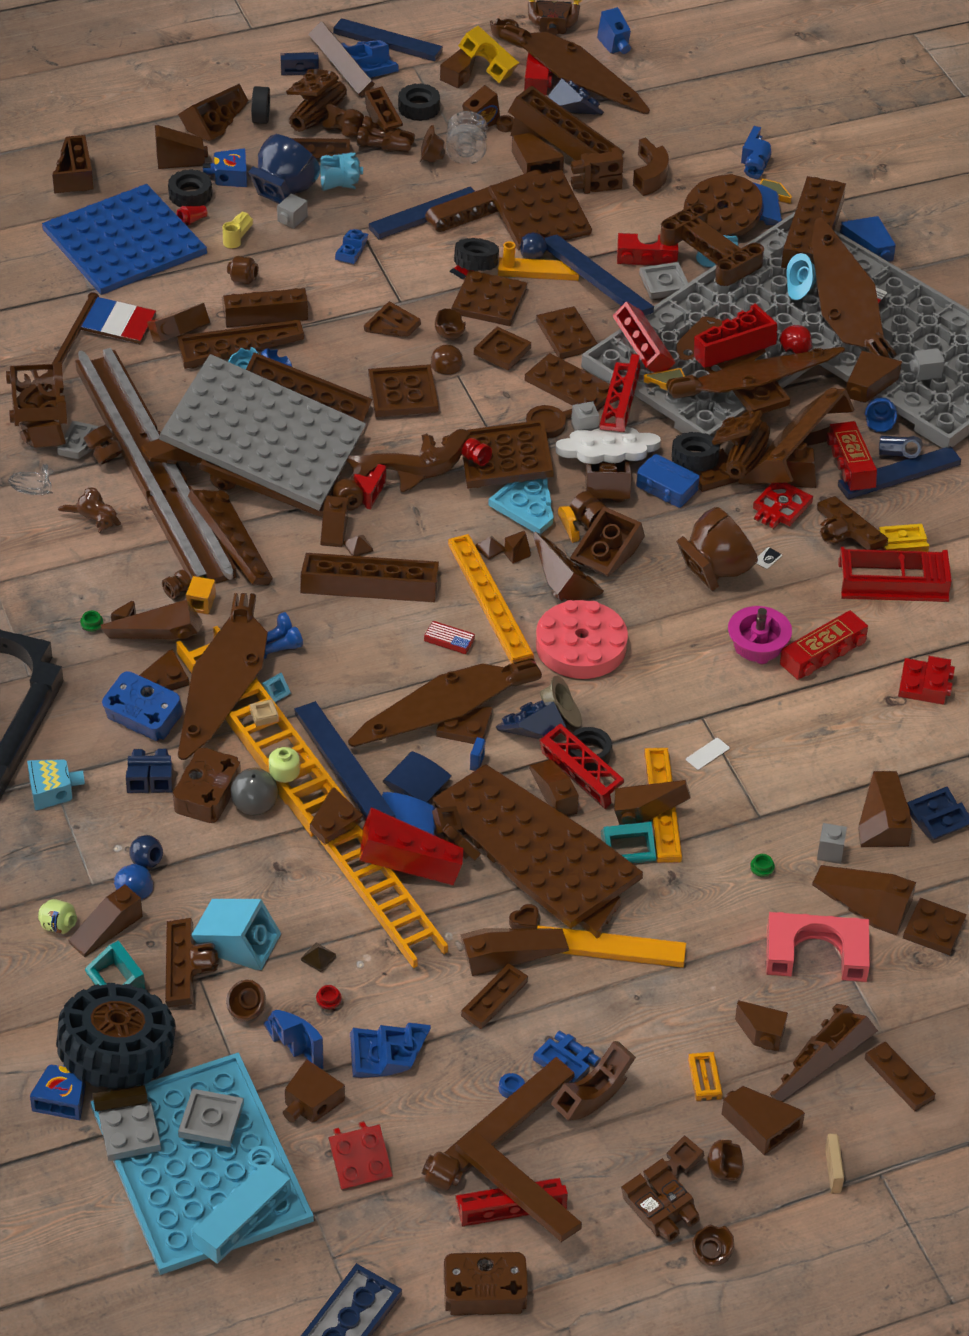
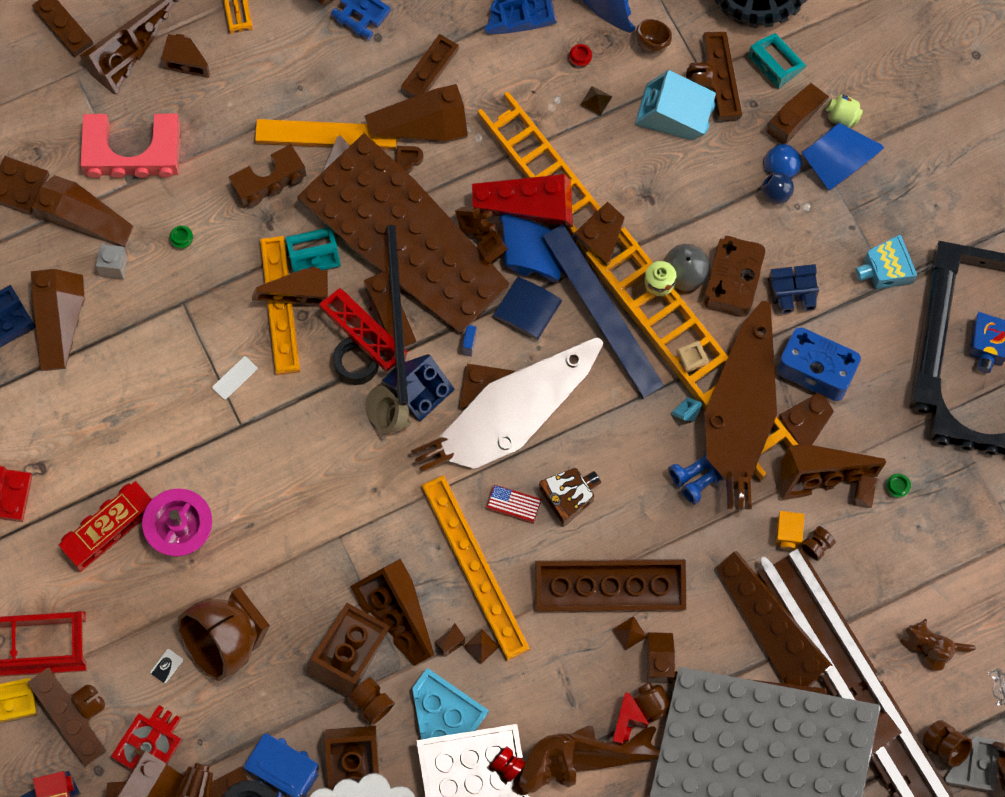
camera: 175 degrees right, 25 degrees up
(71, 877) = (840, 154): none -> blue slope
(398, 635) = (569, 493): none -> torso
(547, 759) = (397, 315): none -> black piece
(567, 517) = (395, 691): light orange tile -> none
(593, 655) = (375, 532): coral piece -> none
(688, 897) = (253, 188): none -> reddish brown arch

